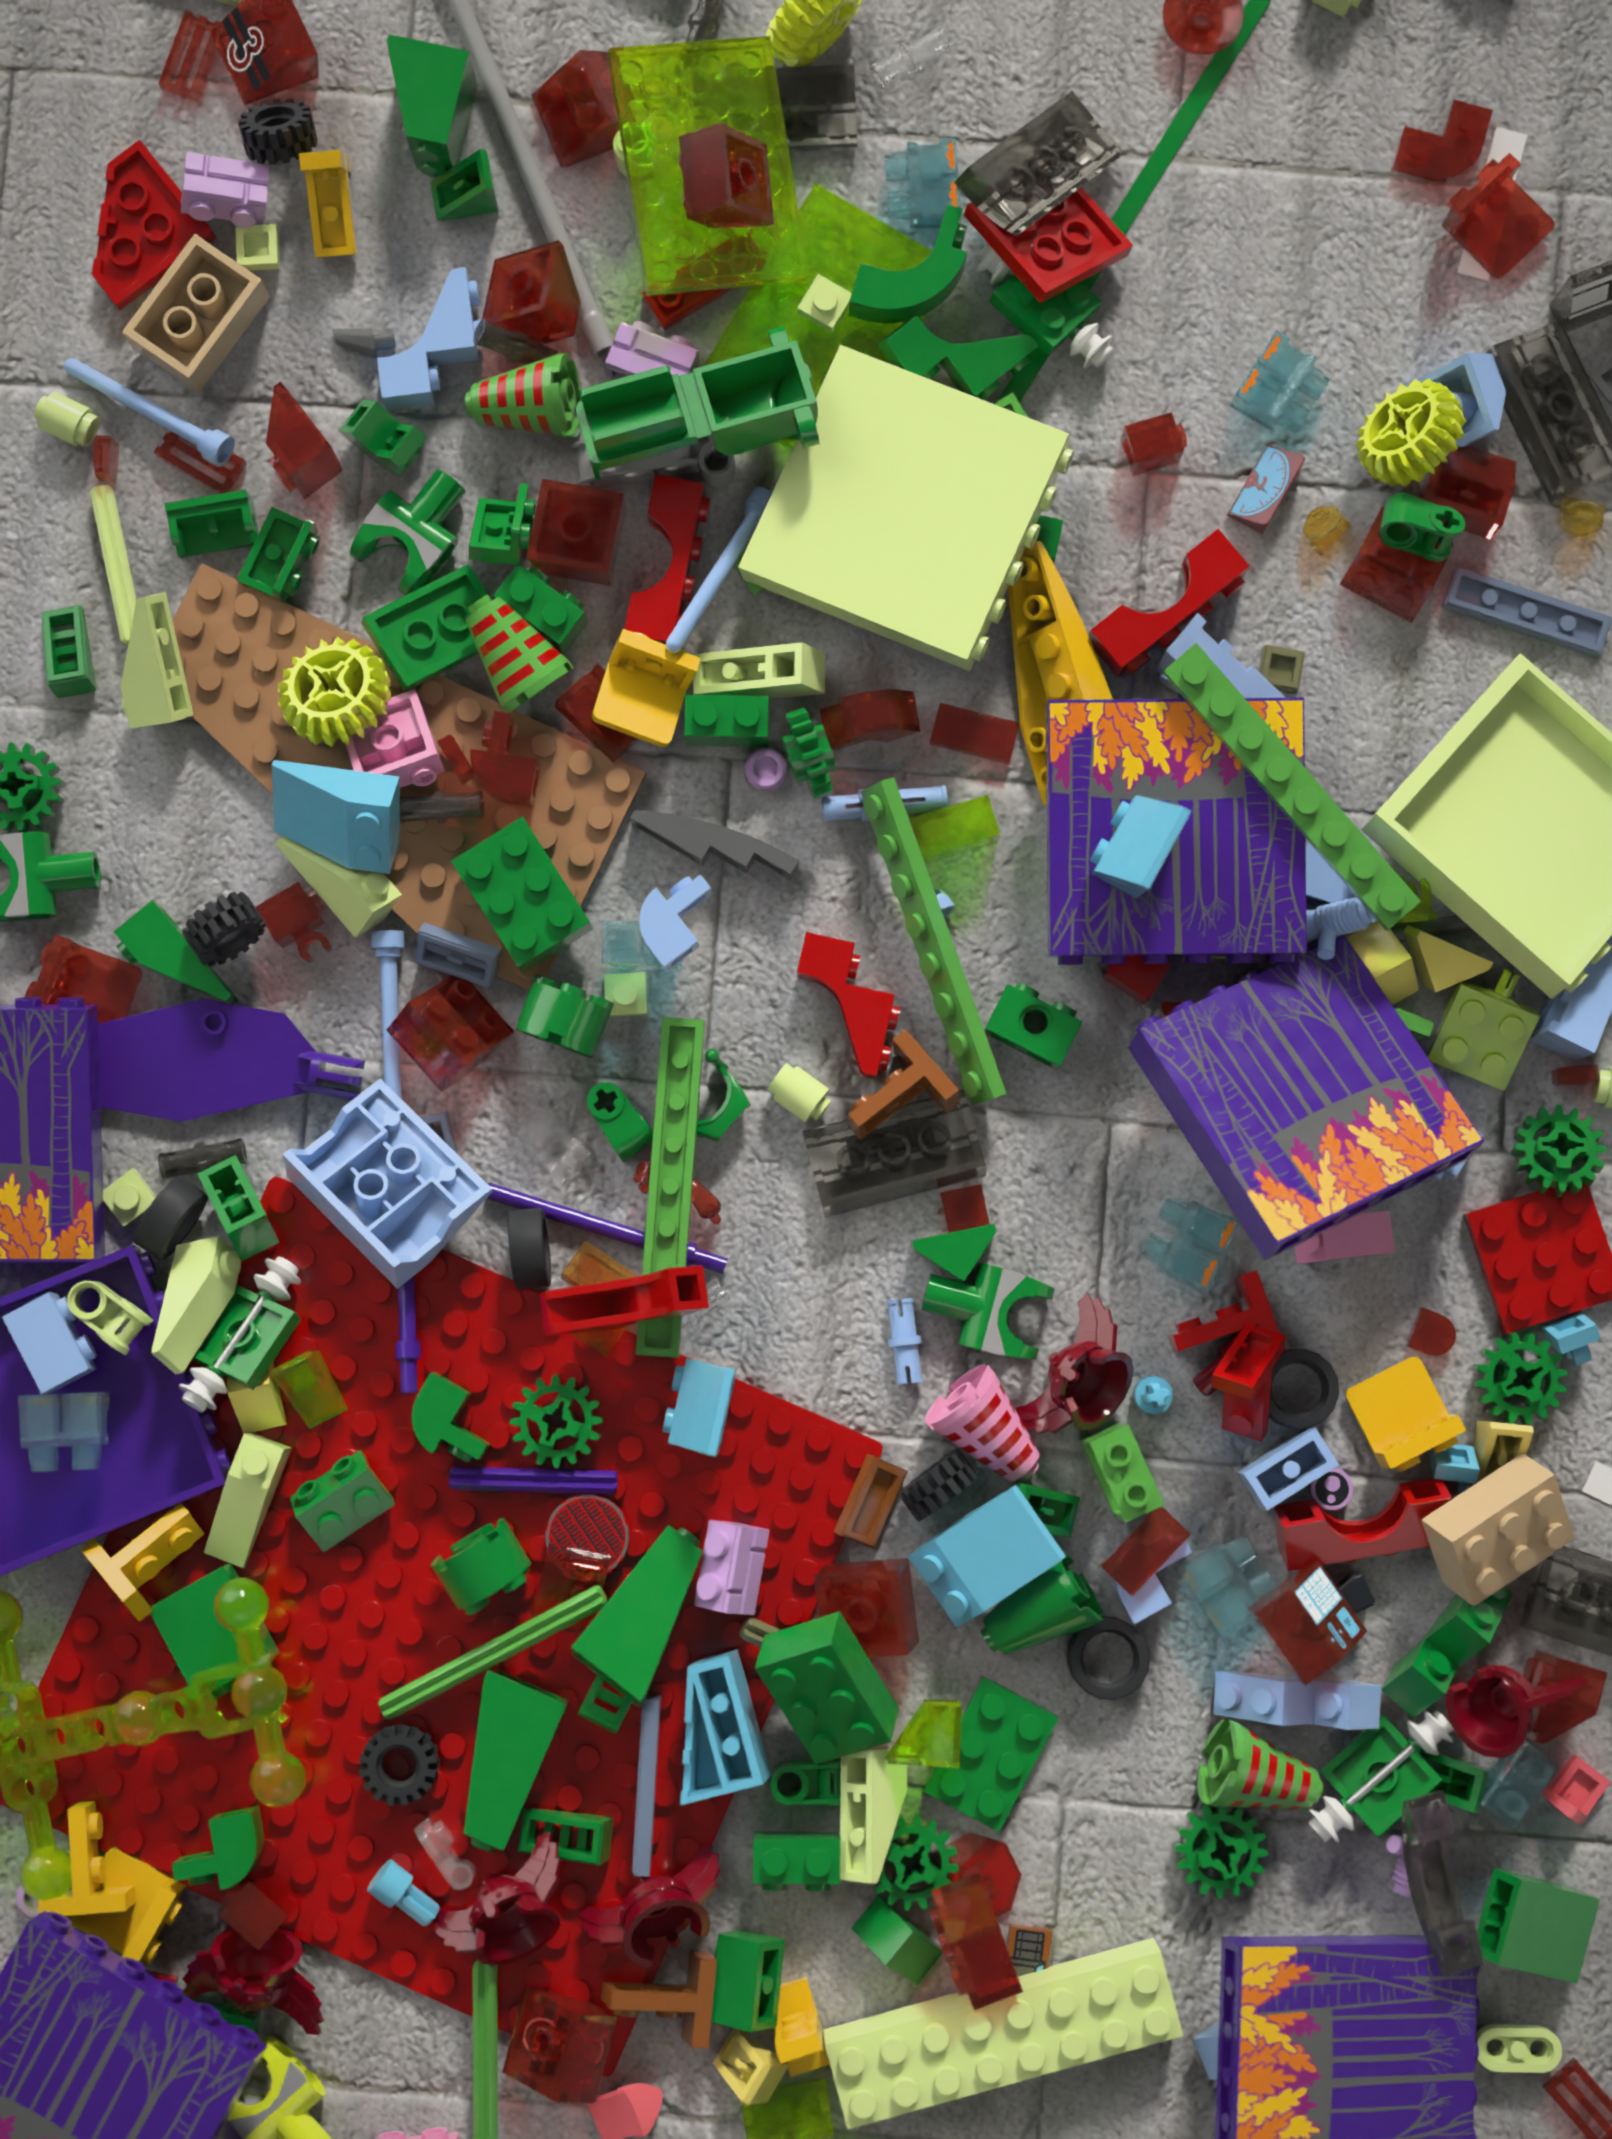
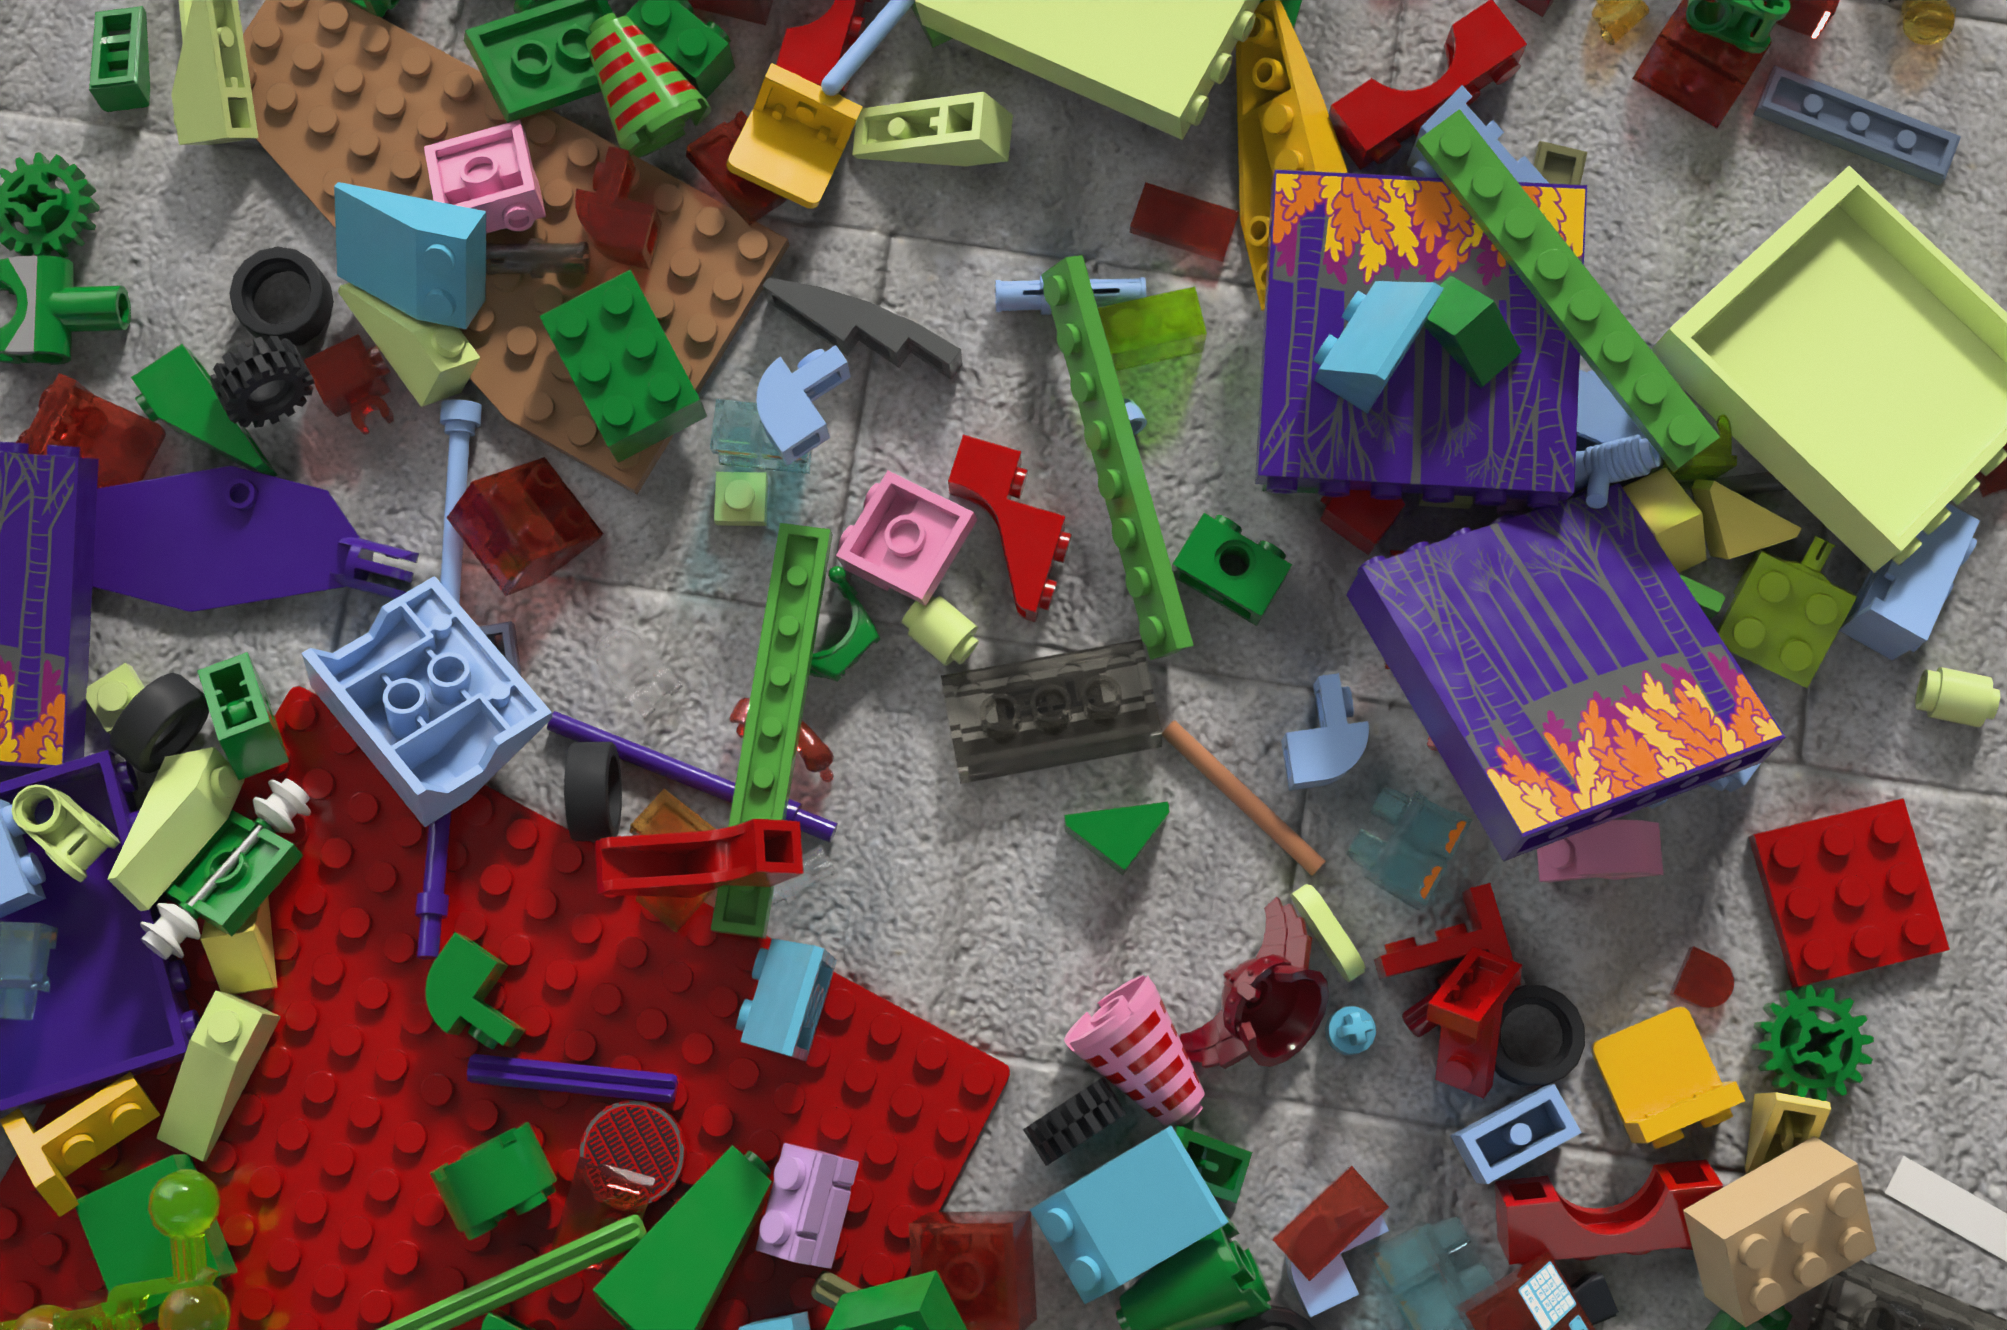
camera: 10 degrees right, 5 degrees down
(200, 1157) = (190, 658): clear smoke pin -> none
(205, 828) = (263, 266): none -> black tyre
(310, 1387) = (306, 940): clear neon green slope -> none
(334, 713) = (422, 114): neon yellow gear -> none
(340, 1501) = (331, 1086): green bracket -> none
(456, 758) = (560, 203): clear red tile -> none
(459, 950) = (542, 429): sand blue tile -> none
(564, 1016) = (660, 515): green brick -> none
(574, 1427) = (593, 1027): green gear -> none
(624, 1126) = (722, 651): green piece -> none
(726, 720) = (888, 184): green brick -> none
(765, 769) = (931, 247): lavender tile -> none
(765, 1021) = (904, 538): none -> bright pink plate
(809, 753) = (983, 225): green gear -> none
(870, 1501) = (989, 1137): dark orange tile -> none
(871, 716) = (1060, 187): clear red brick -> none
(903, 1087) = (1066, 630): dark orange bracket -> none
(904, 1341) = (1047, 941): light blue pin -> none
(964, 1208) = (1132, 782): clear red tile -> none
(985, 1307) = (1150, 906): green connector -> none
(1054, 1213) = (1243, 797): none -> nougat bar
(1126, 1169) = (1327, 752): none -> light blue brick
(1127, 1479) = (1318, 1140): bright green window -> none
(1130, 1318) = (1328, 932): none -> yellowish green tile
(1216, 826) = (1472, 331): none -> green slope
(1332, 1489) = (1569, 1166): tile -> none
(1456, 1465) = (1726, 1145): medium azure tile -> none
(1572, 1139) = (1867, 768): green gear -> none
(1572, 1336) = (1881, 995): medium azure tile -> none
(1575, 1075) = (1896, 674): clear red tile -> none

